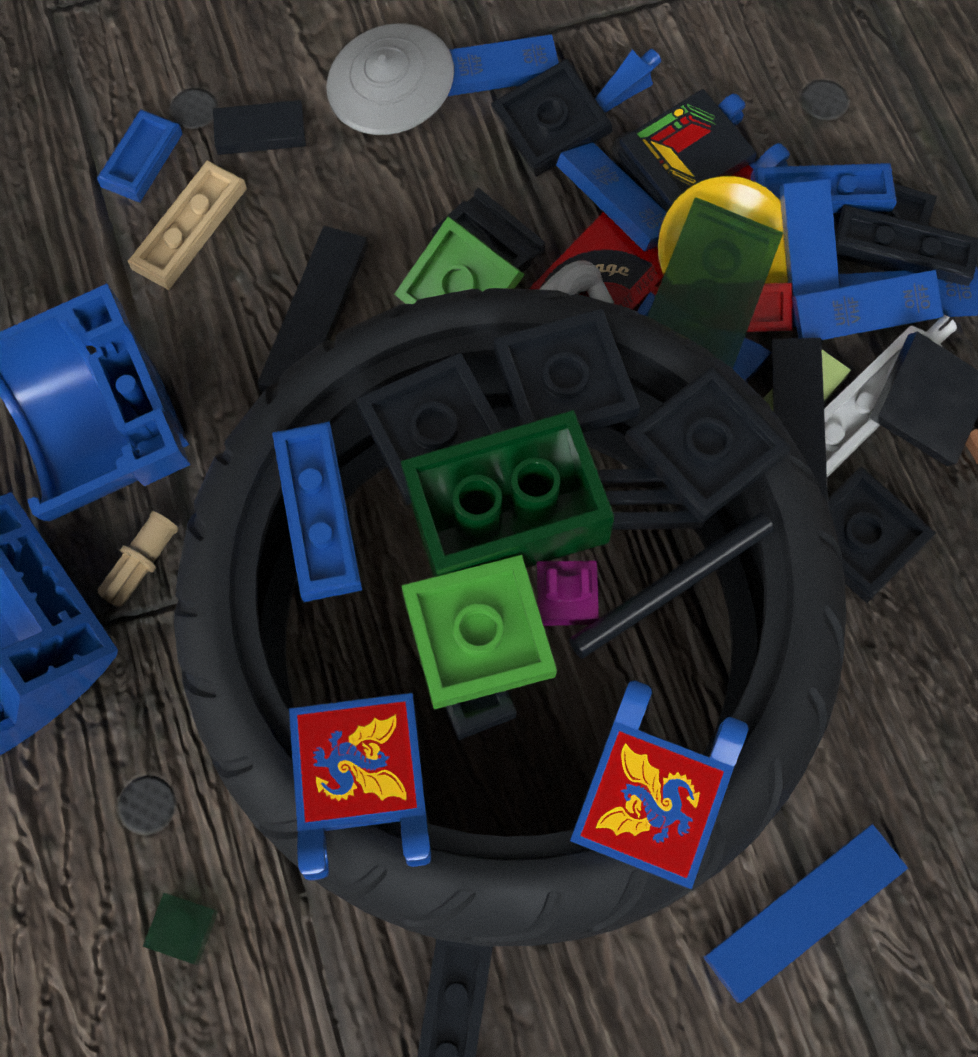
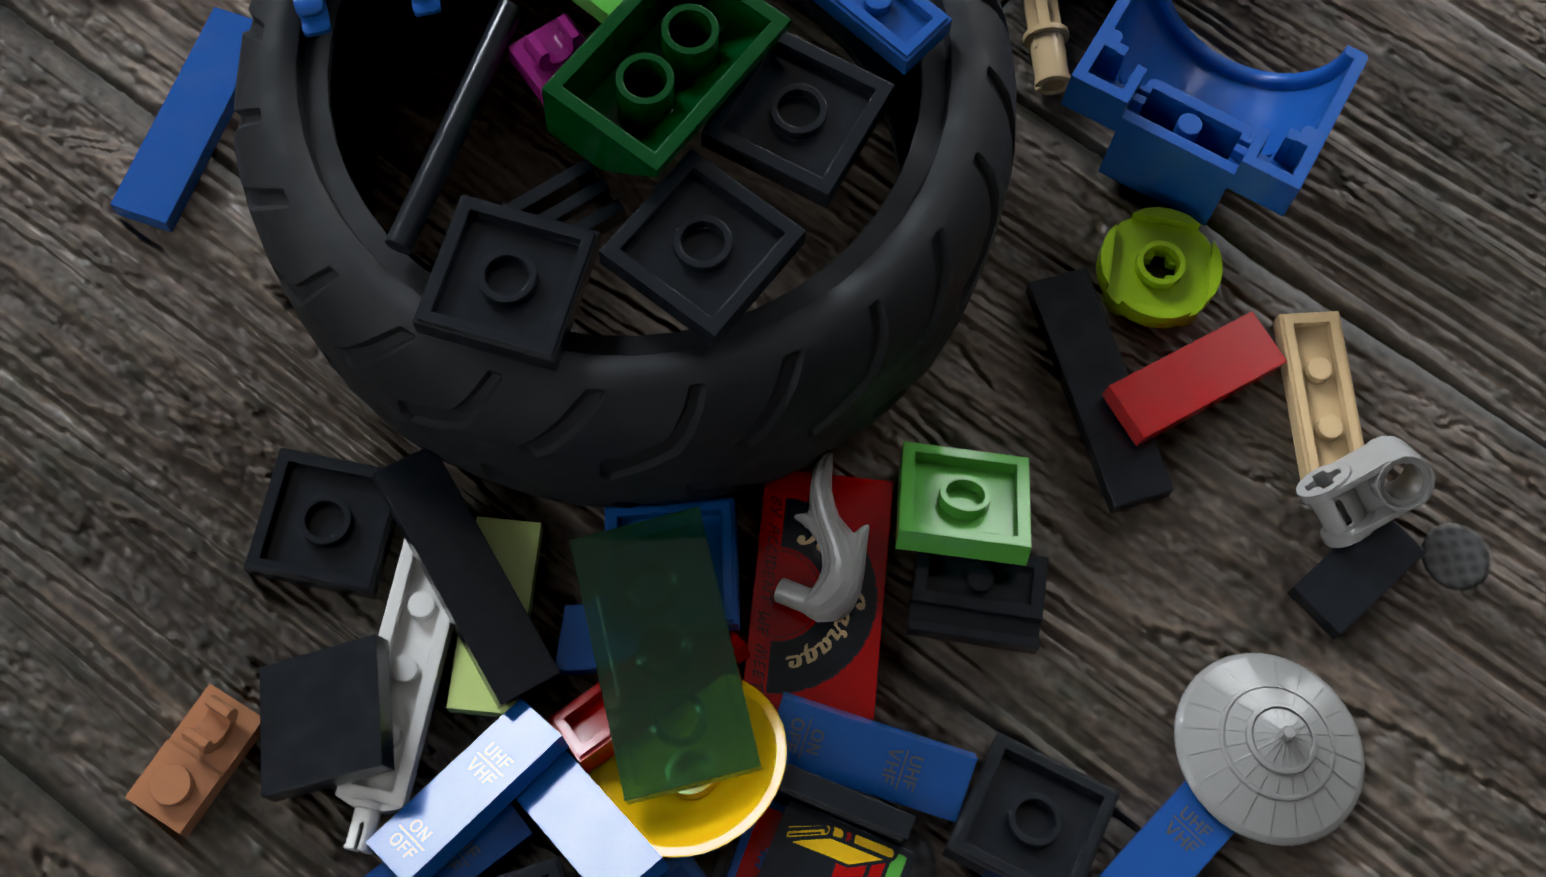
camera: 140 degrees right, 0 degrees up
(140, 156) = (1451, 442): blue tile -> none
(213, 145) = (1361, 490): none -> light grey piece
(218, 379) = (1150, 300): none -> lime plate
(253, 274) = (1193, 378): none -> red tile

